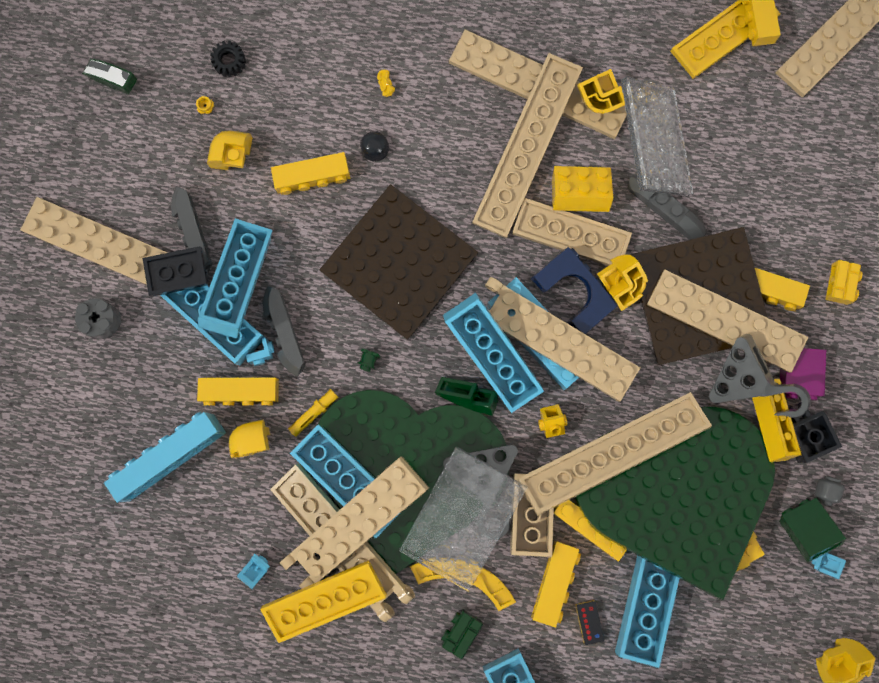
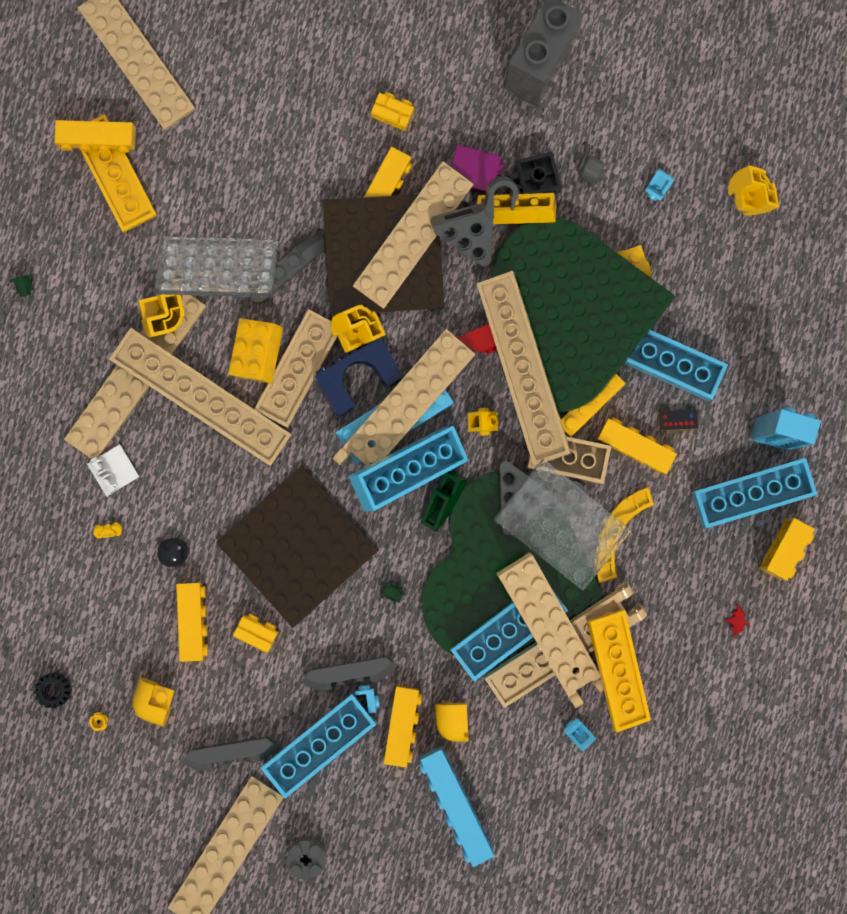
camera: 80 degrees left, 5 degrees up
(110, 75) = (49, 817): slope -> none
(175, 271) = (274, 771): black plate -> none
(235, 278) = (291, 711): medium azure brick -> none
(309, 235) = (256, 633): none -> yellow brick
(313, 412) = (439, 660): yellow pin -> none
(443, 78) = (113, 470): none -> white hinge
(461, 634) = (669, 543): dark green brick -> none
(633, 405) = (480, 340): none -> red slope
(811, 529) = (624, 195): dark green brick -> none

